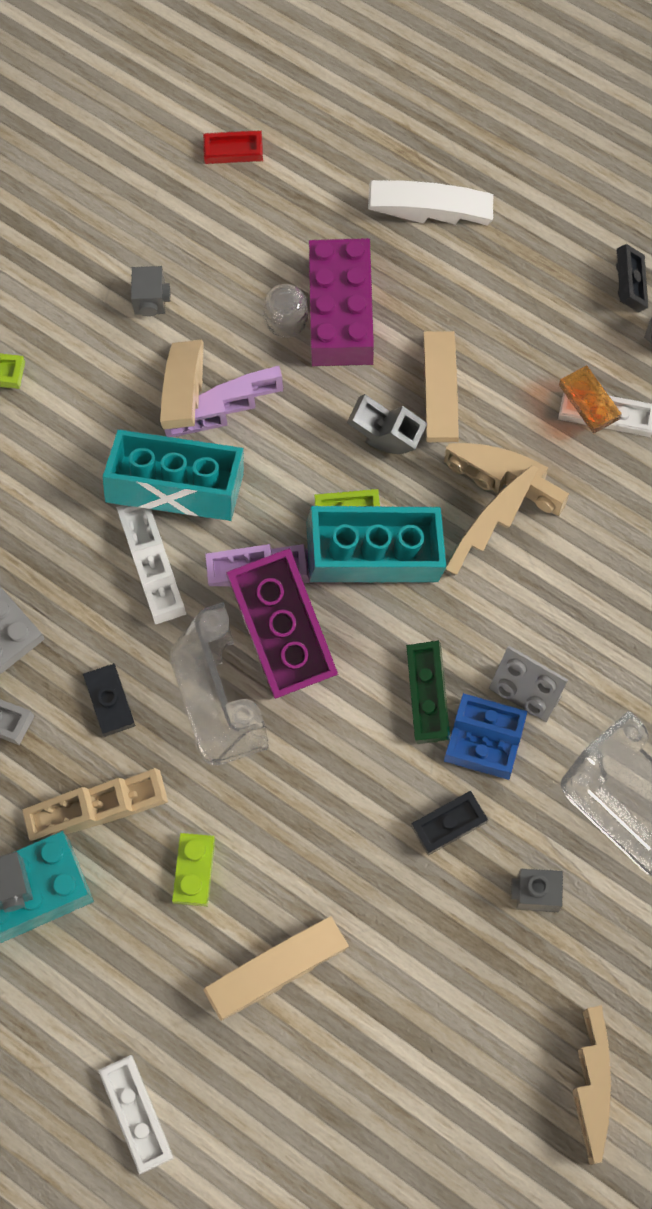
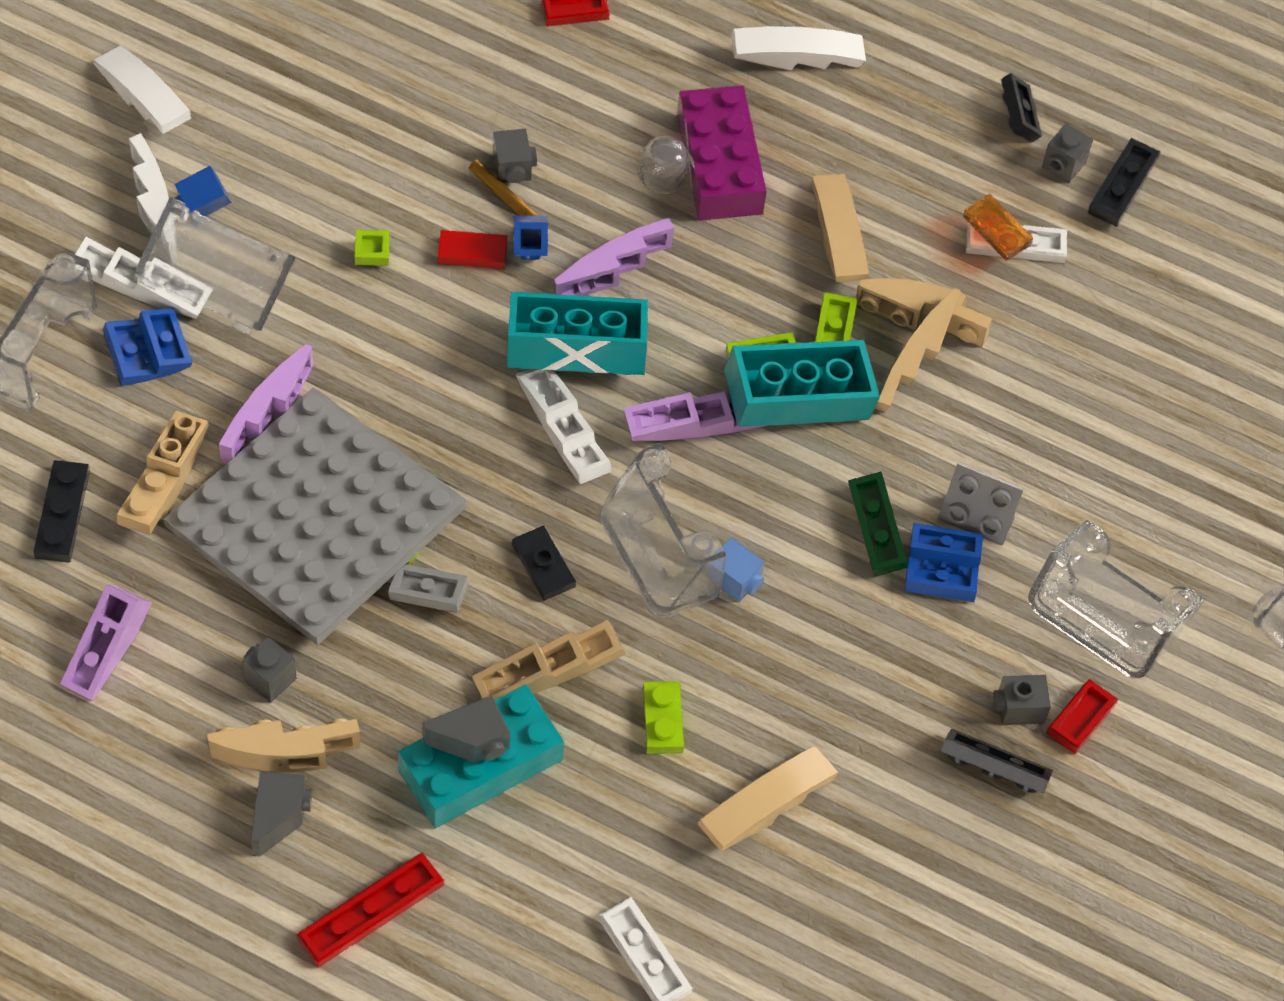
camera: 15 degrees left, 10 degrees down
(98, 379) = (472, 249): none -> red tile
(138, 327) = (500, 189): none -> pearl gold bar
(148, 372) = (530, 237): none -> blue brick
(182, 384) = (570, 244): tan slope -> none
(281, 623) = (719, 464): magenta brick -> none
(286, 727) = (741, 571): none -> medium blue brick
(386, 430) = (792, 275): dark grey brick -> none
(421, 481) = (836, 318): none -> lime plate
(449, 823) = (920, 646): black plate -> none
(503, 952) = (996, 761): none -> black plate
(594, 1098) = (1109, 882): tan slope -> none
(595, 910) = (1082, 716): none -> red tile

